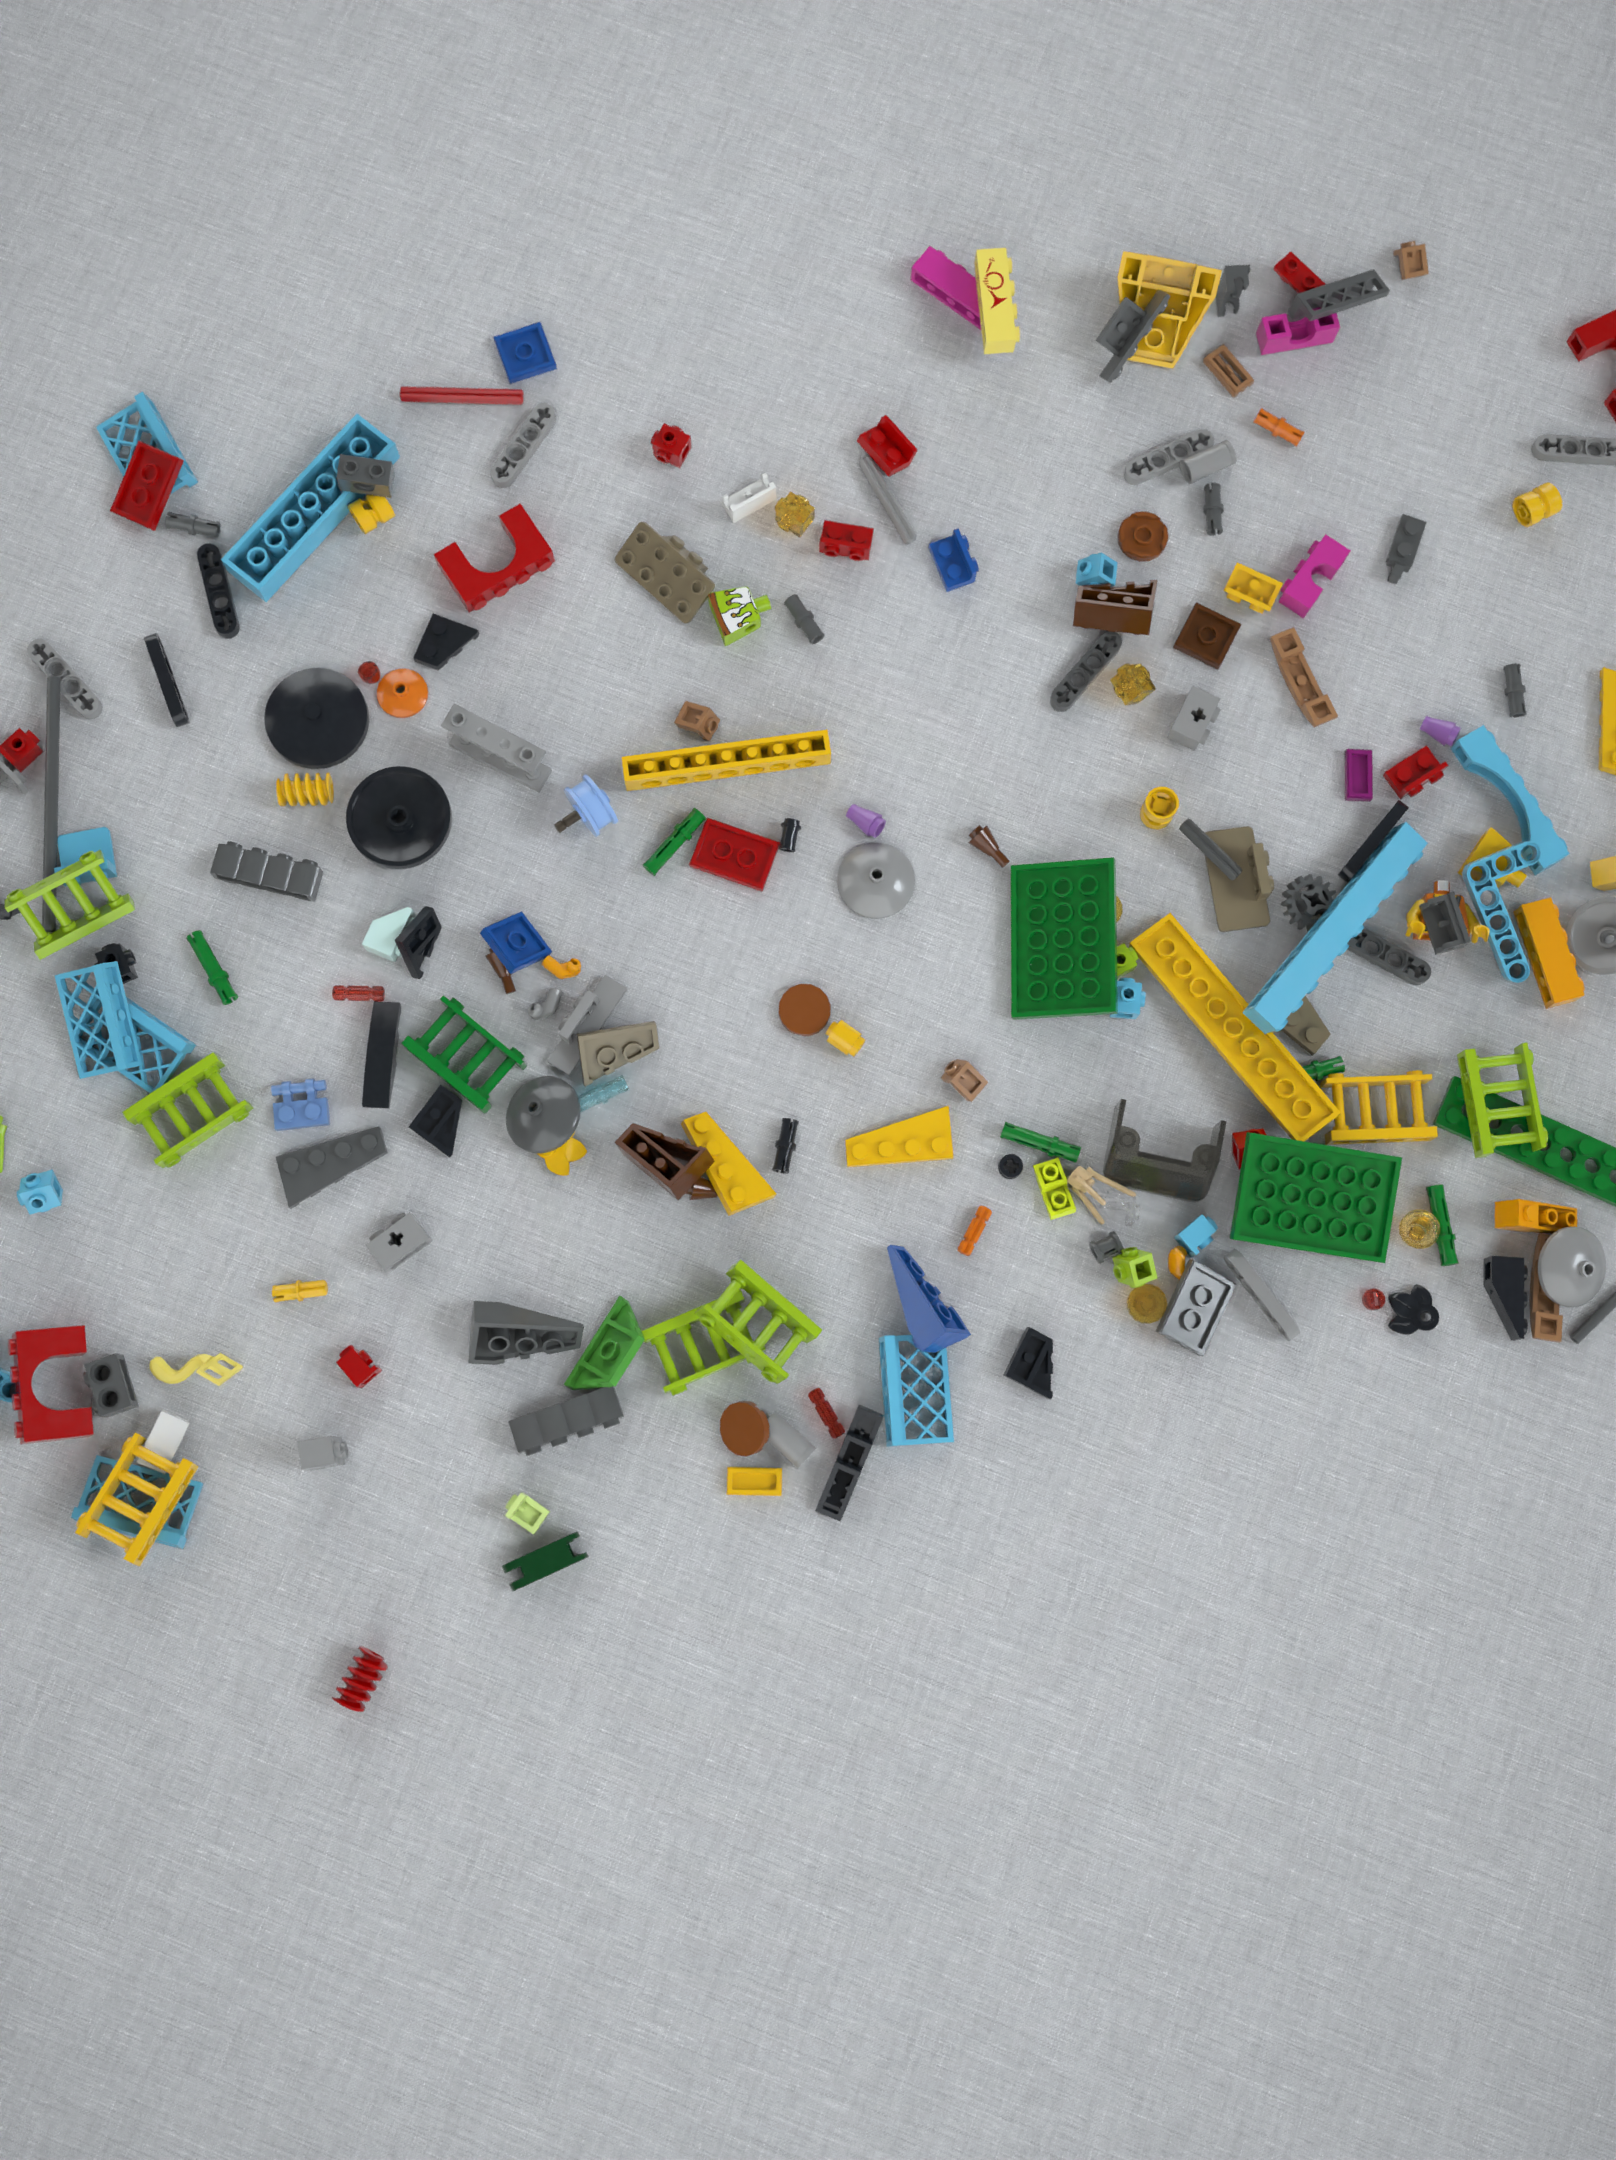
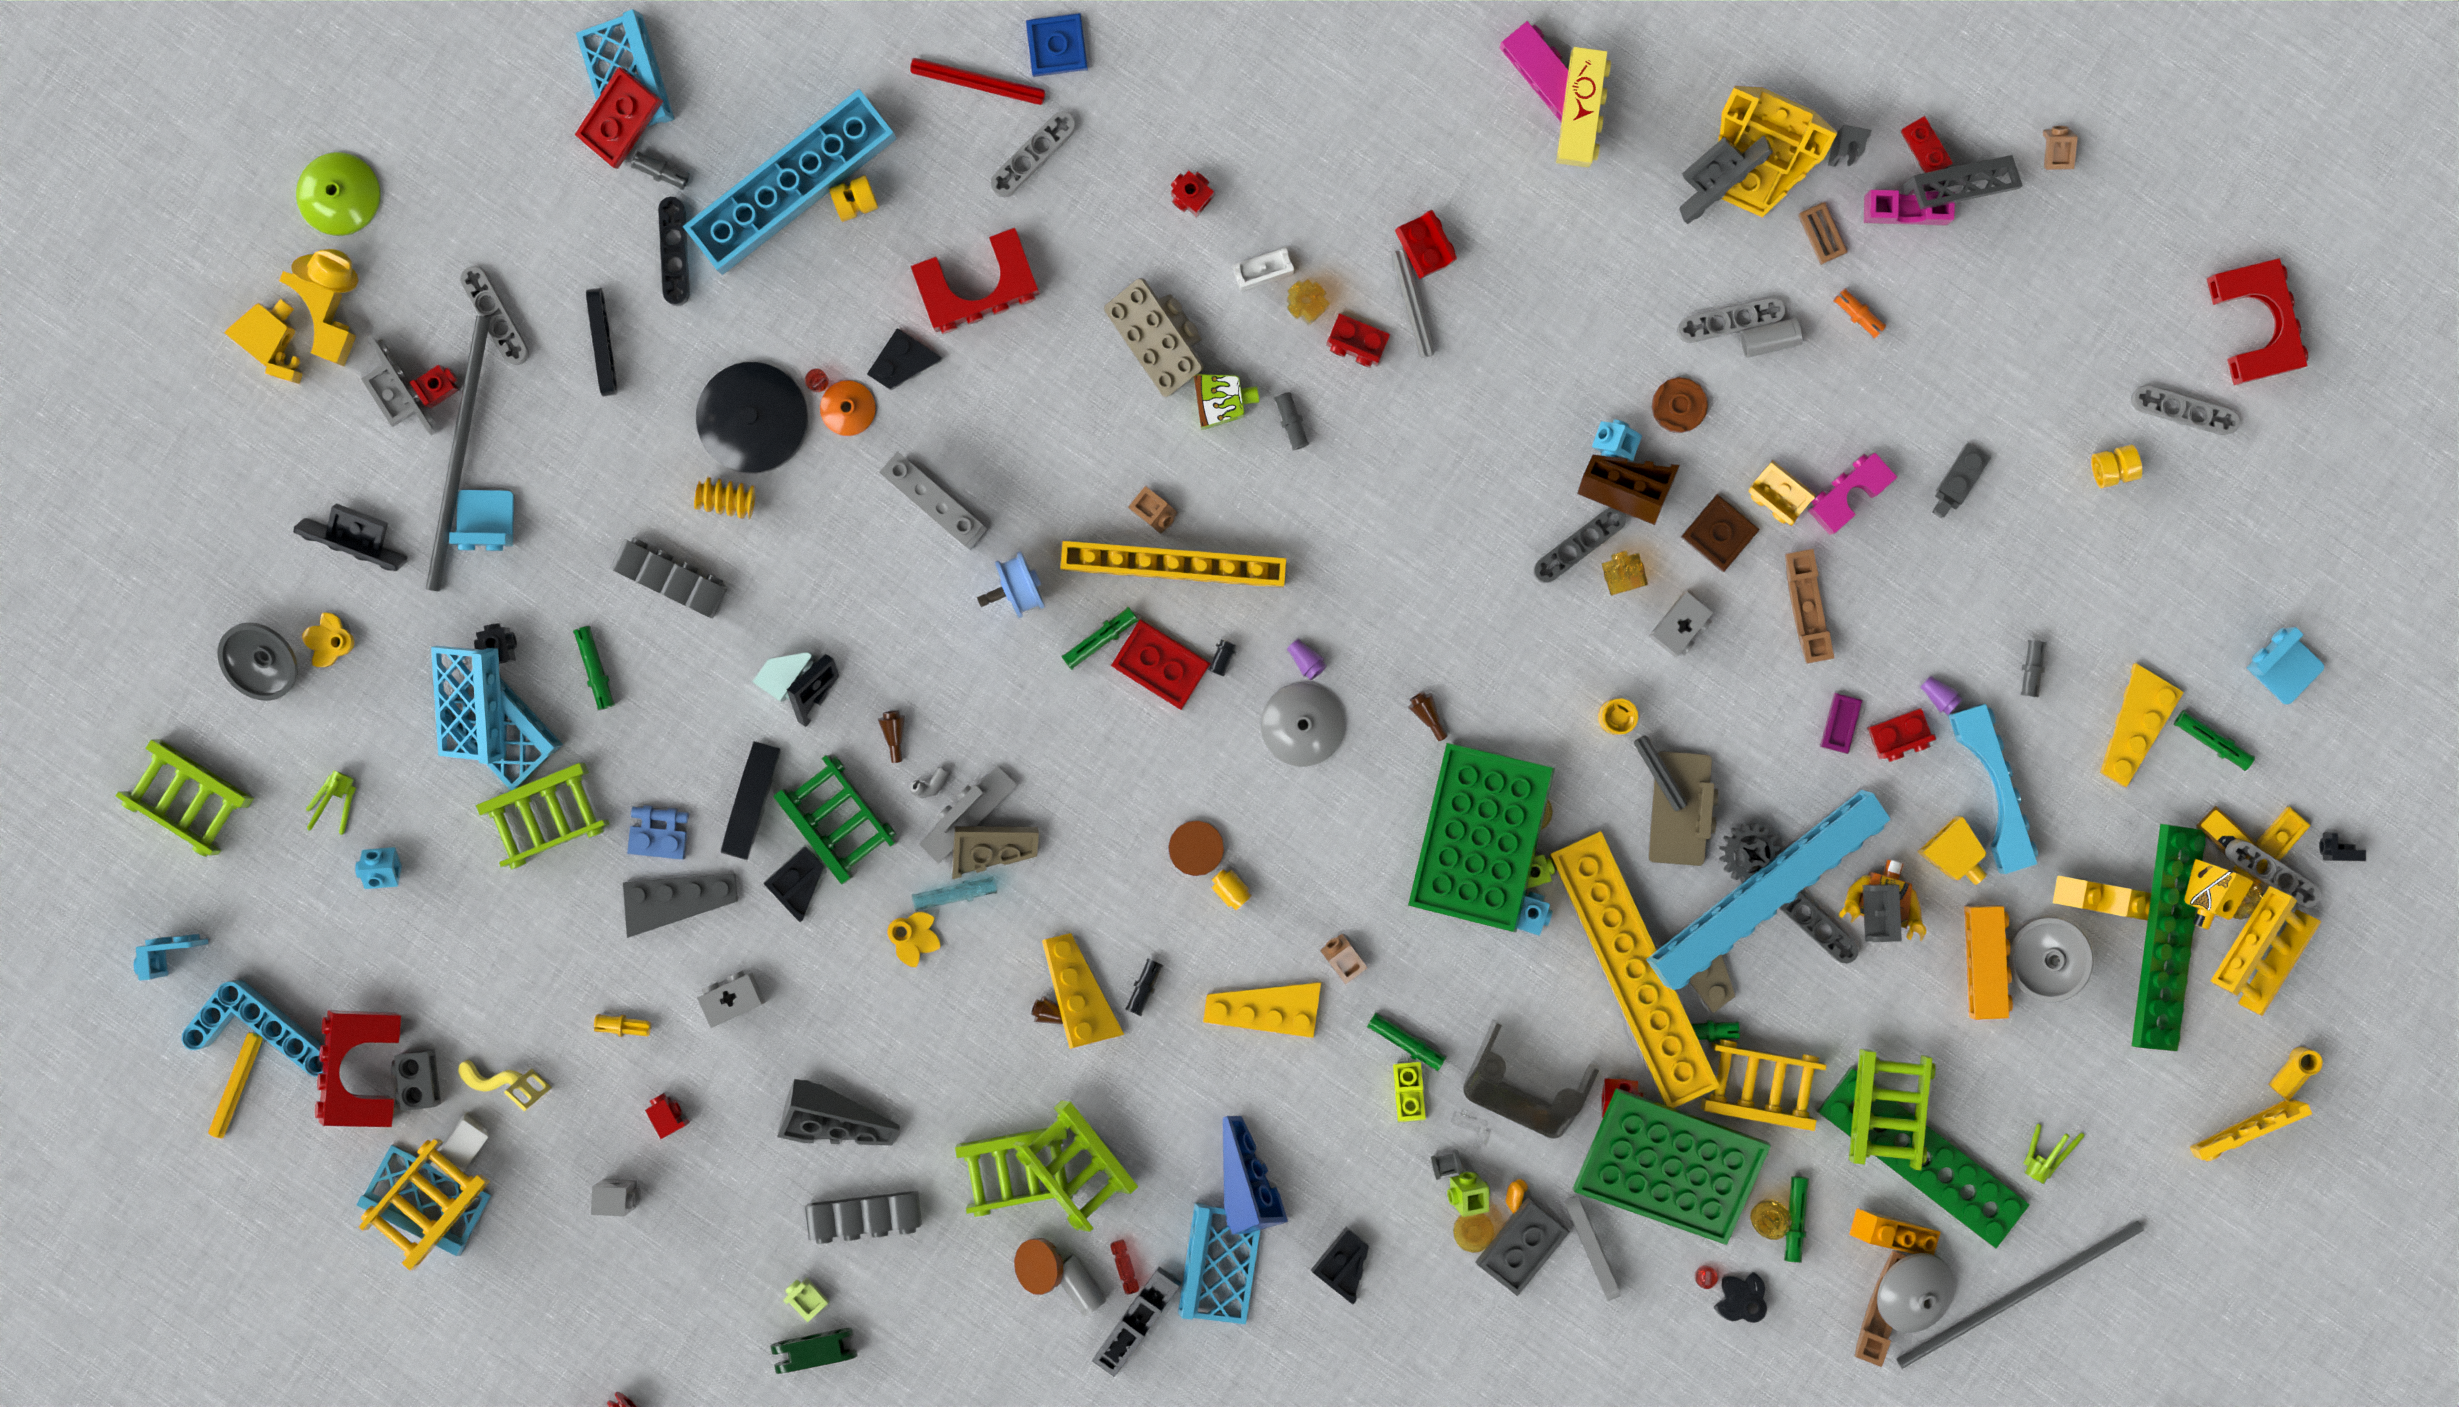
camera: 20 degrees right, 10 degrees up
(70, 930) = (465, 596): lime fence -> none
(358, 993) = (739, 728): clear red axle -> none
(365, 475) = (854, 169): dark grey brick -> none
(398, 817) = (817, 551): black dish -> none
(516, 942) = (912, 713): blue tile -> none
(552, 1121) = (917, 902): dark grey dish -> none
(563, 970) = (955, 750): light orange arm -> none
(609, 1350) = (921, 1157): bright green wing -> none
(664, 1159) = (1016, 980): reddish brown wedge -> none
(754, 1481) = (1037, 1317): yellow tile -> none
(954, 561) = (1467, 390): blue bracket -> none
(974, 1230) = (1317, 1117): orange axle -> none
(1015, 1160) = (1376, 1053): black bush -> none
(1082, 1181) = (1438, 1093): tan plant -> none
(1197, 1234) = (1542, 1173): medium azure brick -> none
(1213, 509) = (1763, 392): dark grey pin -> none
(1373, 841) = (1835, 800): black beam -> none
(1497, 906) = (1940, 906): medium azure beam -> none
(1505, 1286) = (1843, 1295): black slope -> none

